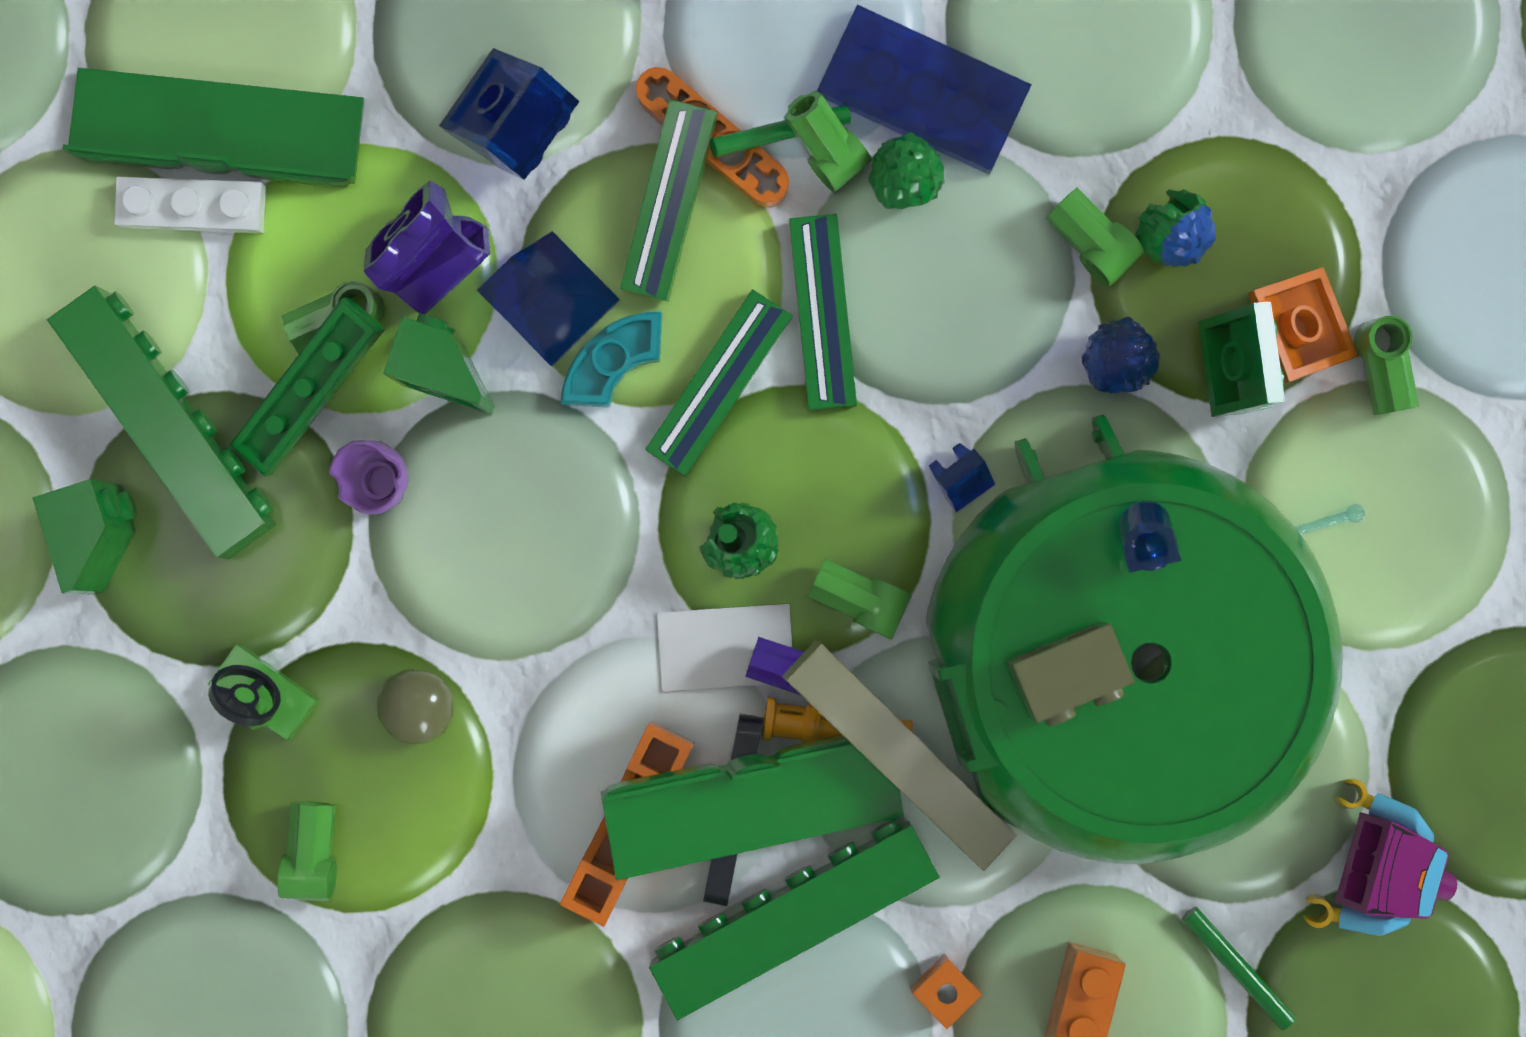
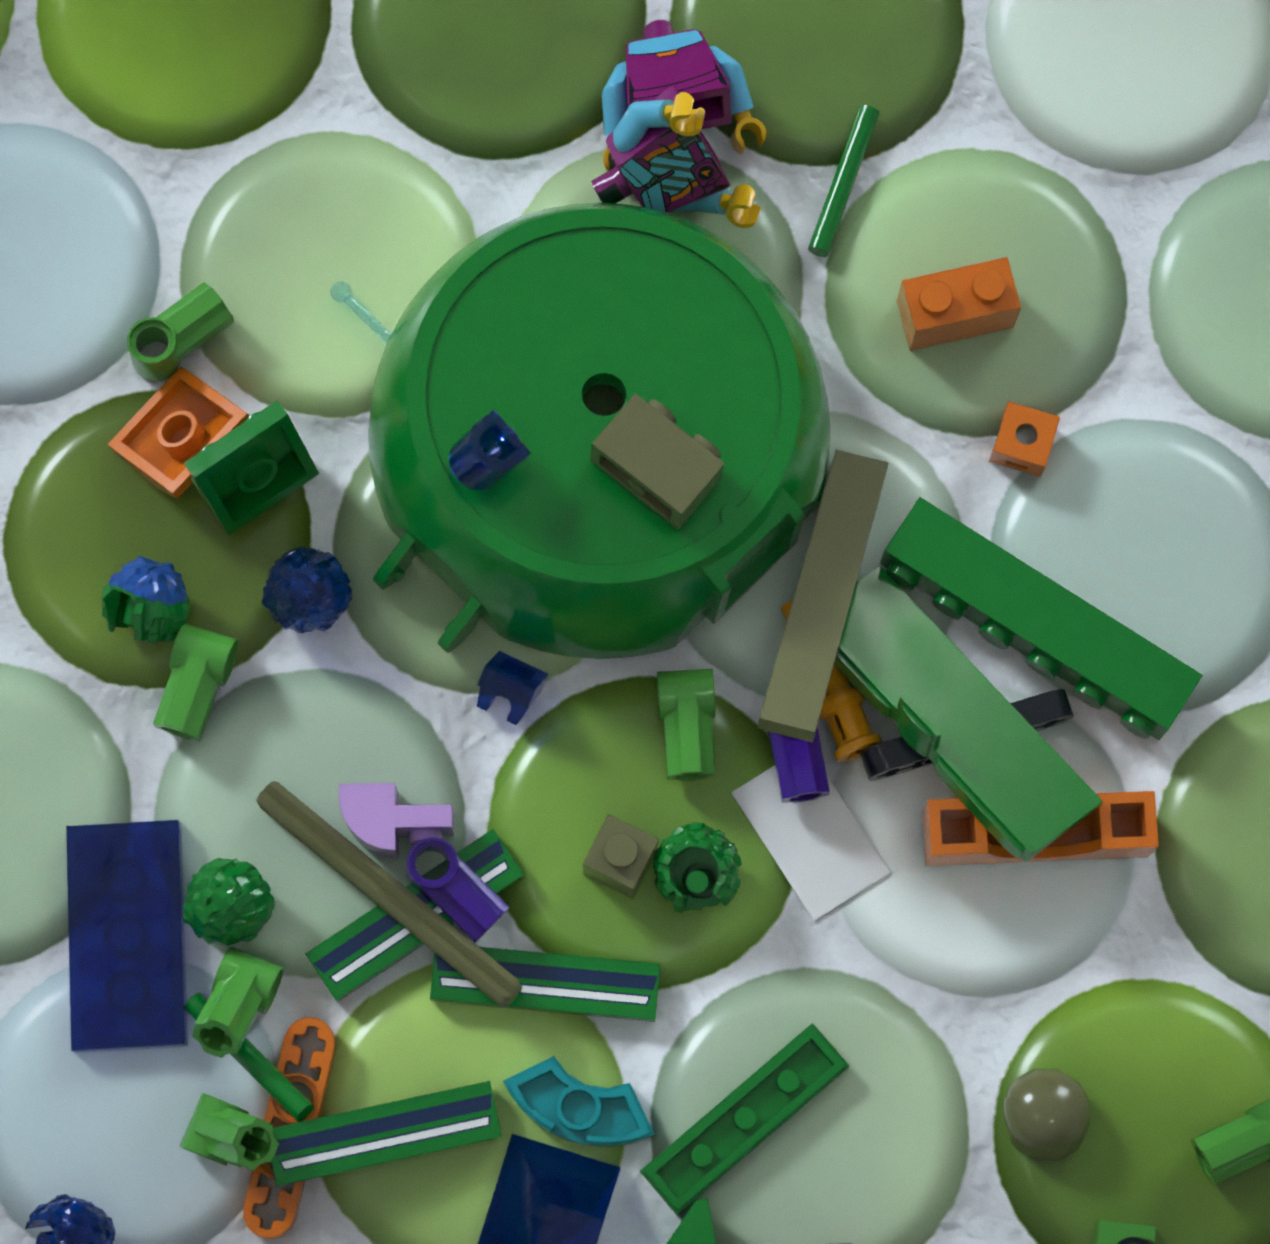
camera: 120 degrees left, 10 degrees down
(535, 477) = (744, 1119): none -> green tile
(728, 83) = (229, 1134): none -> bright green piece
(781, 488) = (620, 856): none -> olive brick
(818, 349) = (459, 892): none -> dark purple piece
(847, 297) = (389, 894): none -> olive axle
(910, 319) = (379, 820): none -> lavender brick
(1324, 830) = (670, 163): none -> torso

